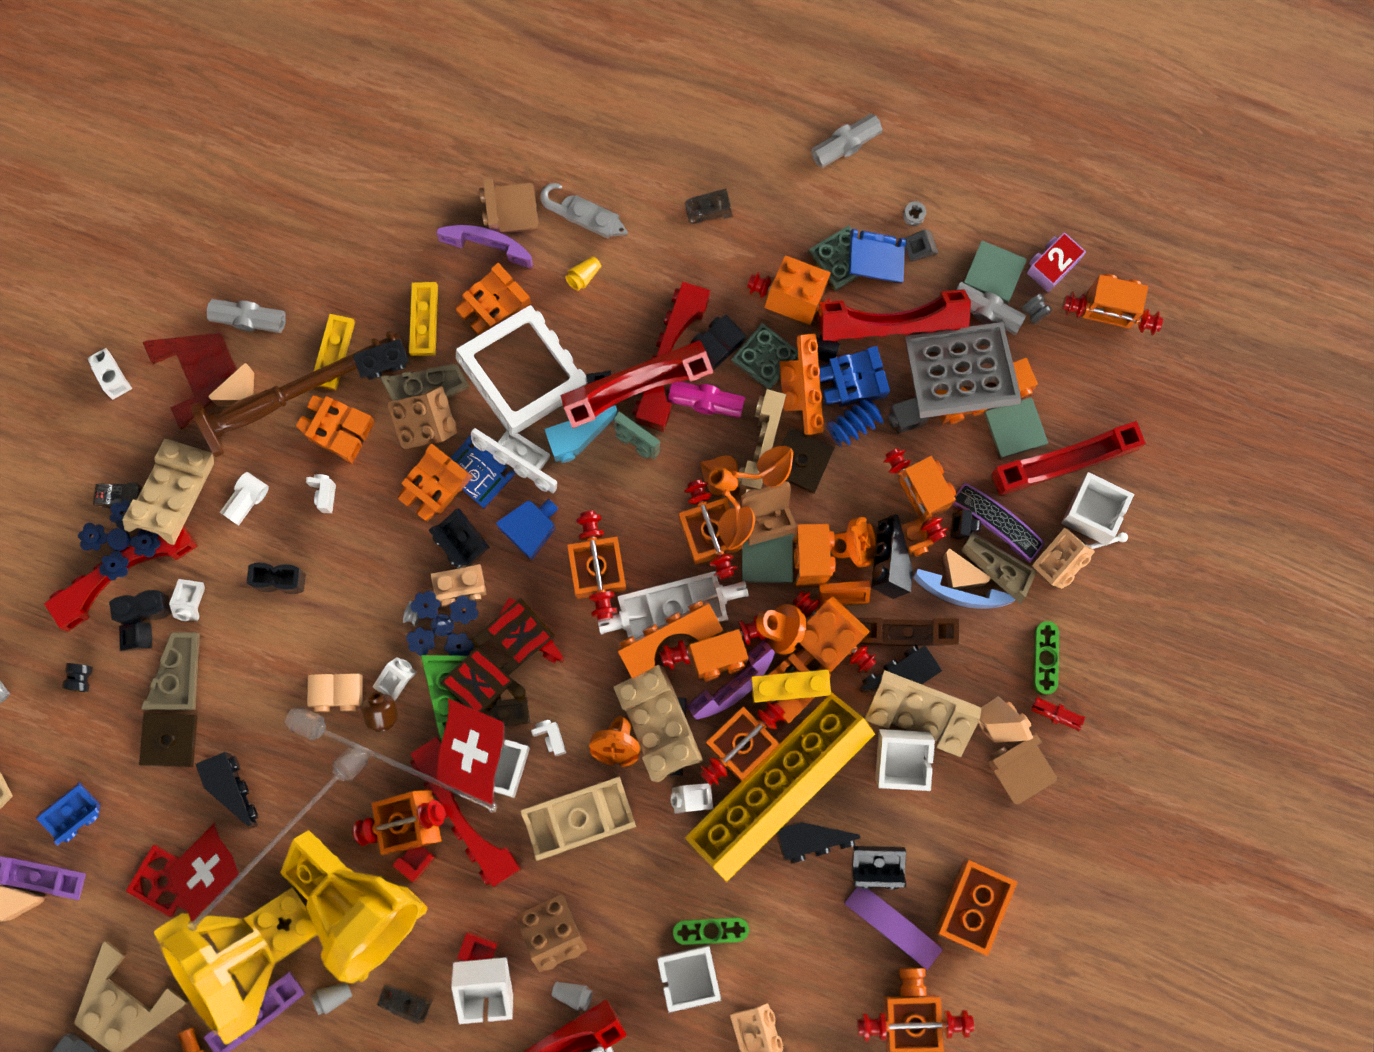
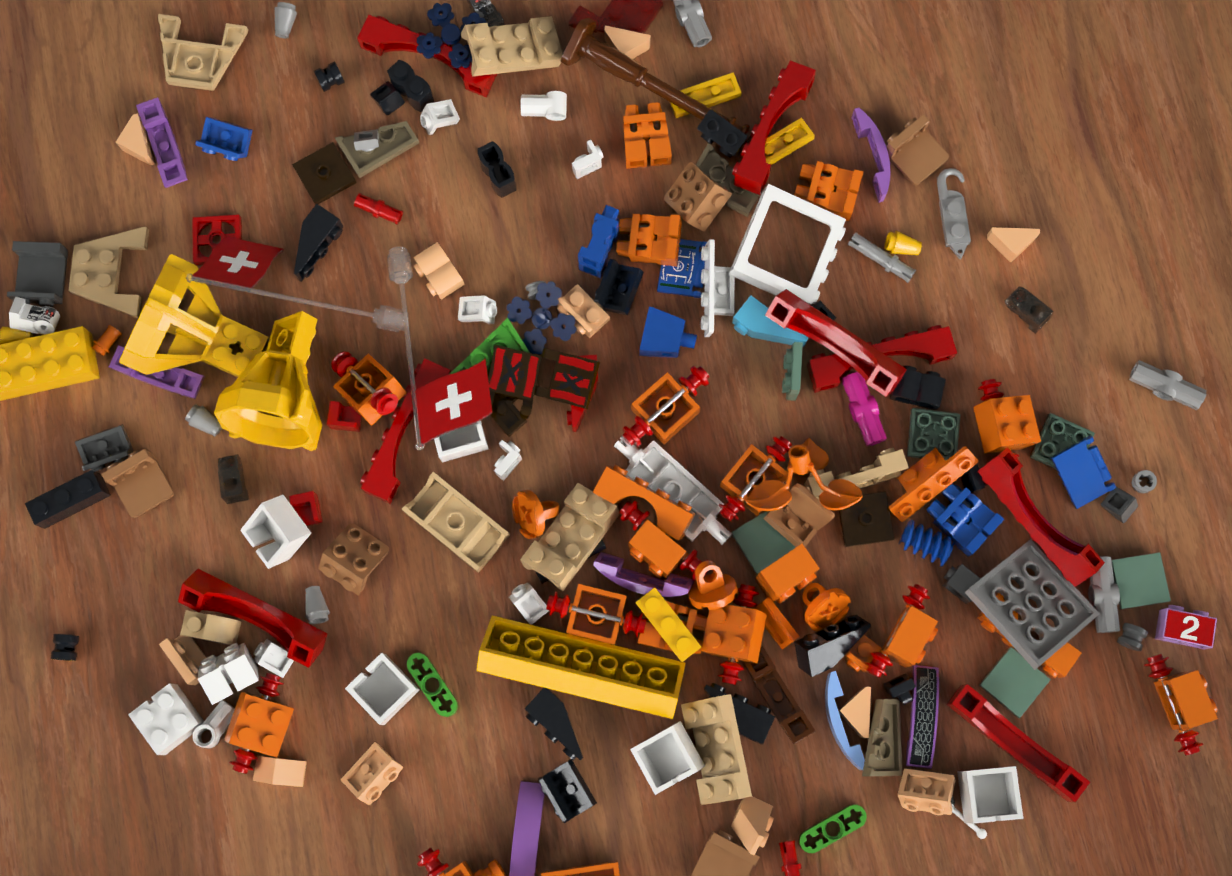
camera: 65 degrees right, 0 degrees up
(166, 680) = (366, 140): none -> light grey plate
(237, 710) = (378, 208): none -> red pin
(379, 270) = (793, 85): none -> red arch
(379, 712) = (443, 314): reddish brown head -> none
(402, 521) = (604, 231): none -> blue hips
(583, 297) = (889, 262): none -> light grey pin
(641, 182) = (1011, 241): none -> light nougat slope

